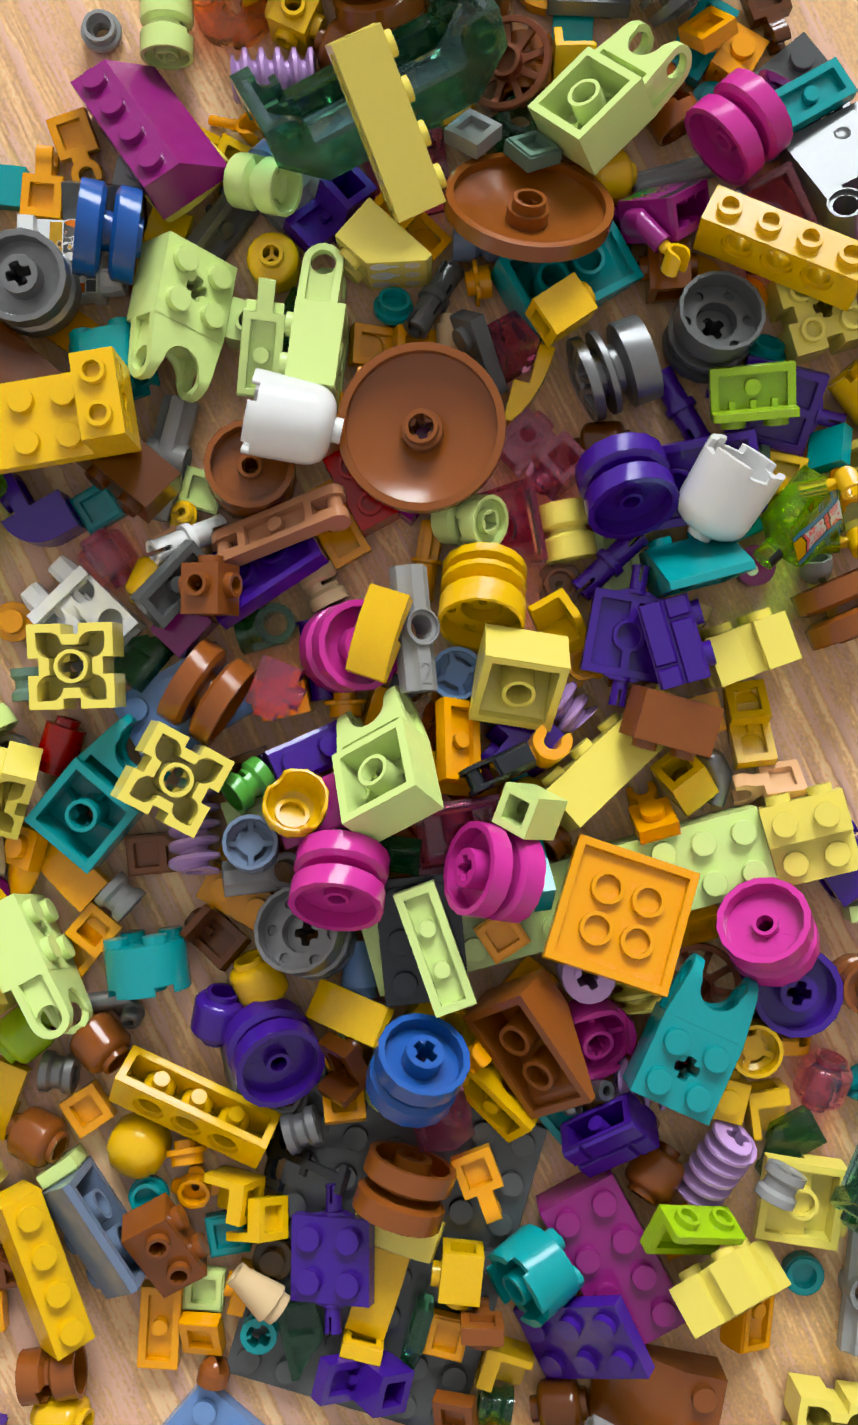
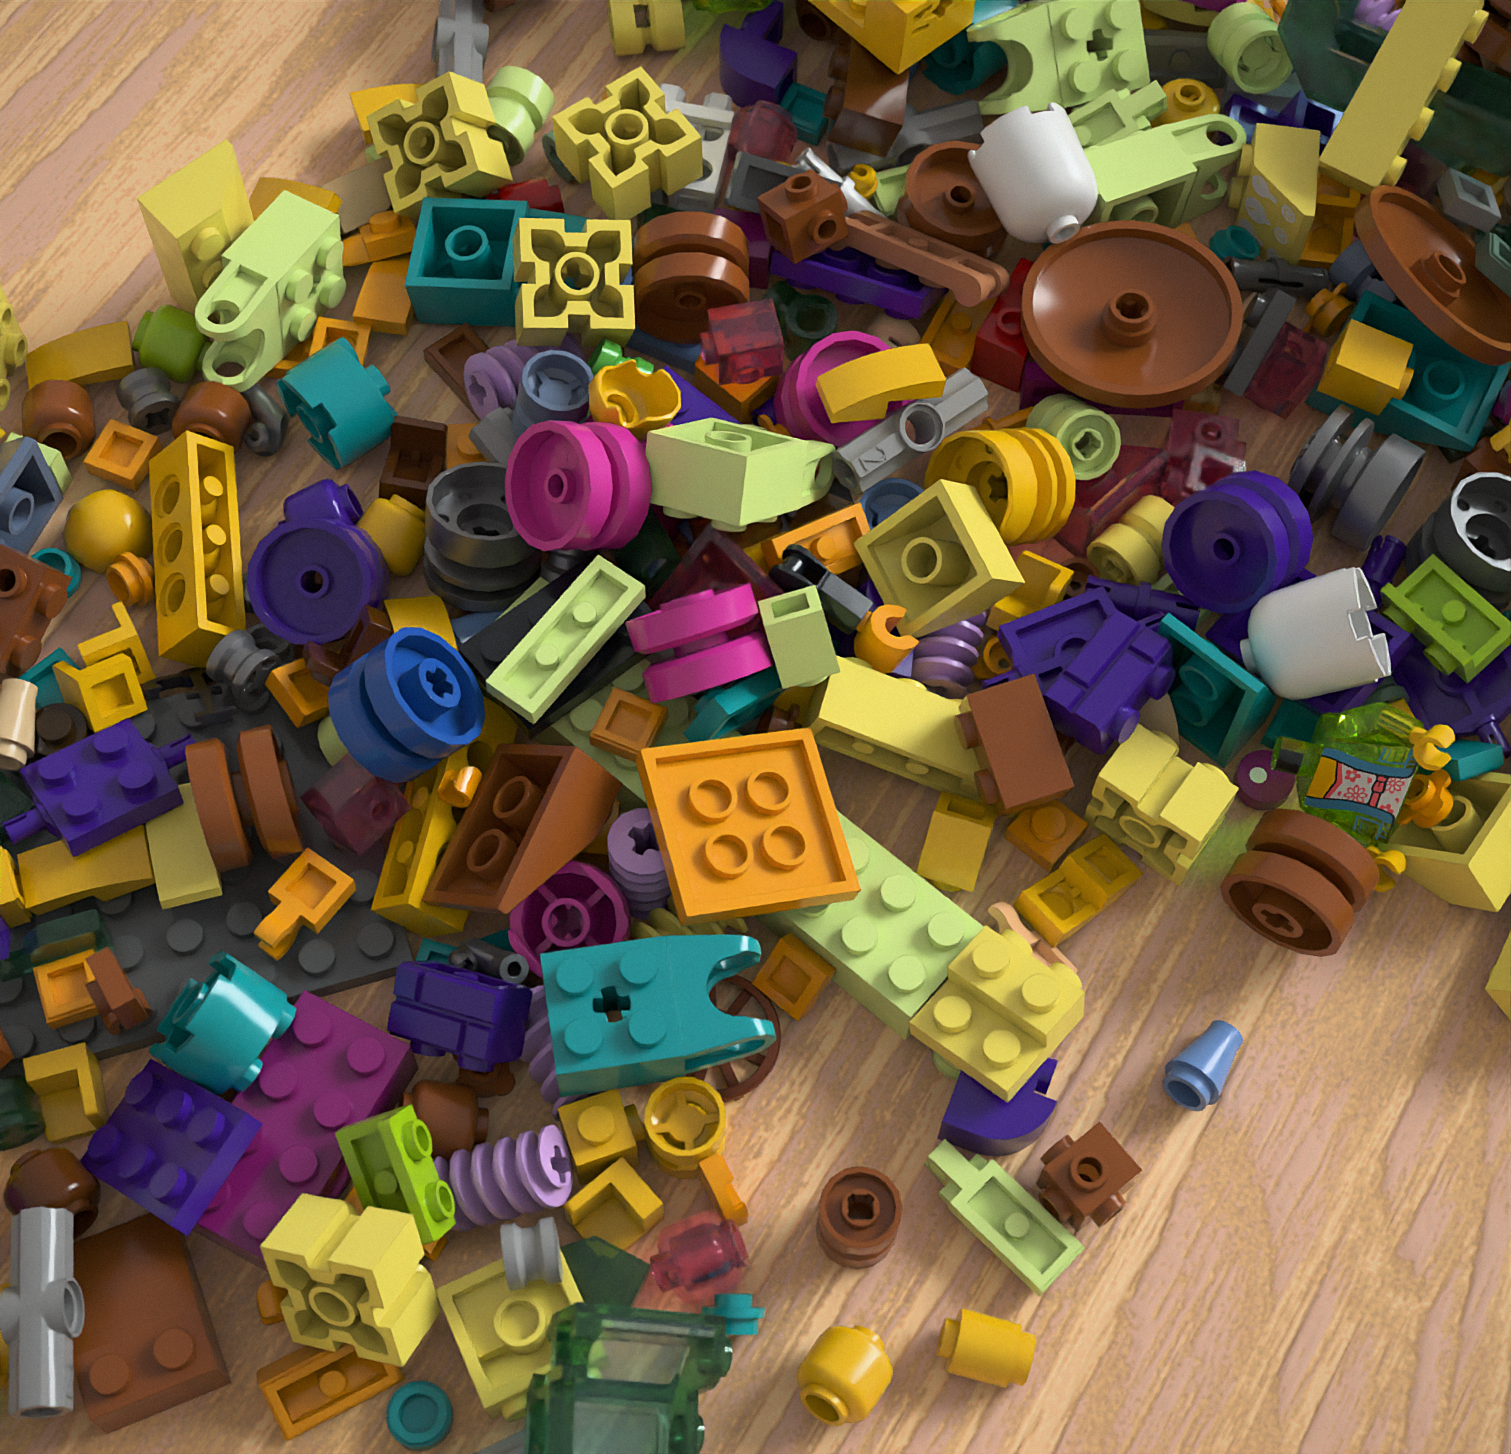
camera: 50 degrees right, 25 degrees down
(119, 897) = (395, 350): light grey wheel -> none
(190, 1196) = (81, 609): light orange plate -> none
(459, 1273) = (165, 945): yellow brick -> none
(524, 393) = (1271, 425): yellow slope -> none
(651, 816) = (887, 824): light orange plate -> none
(721, 775) = (997, 885): flat silver arm -> none
(768, 931) = (847, 1016): dark pink wheel -> none
(805, 1007) = (760, 1135): dark purple wheel -> none

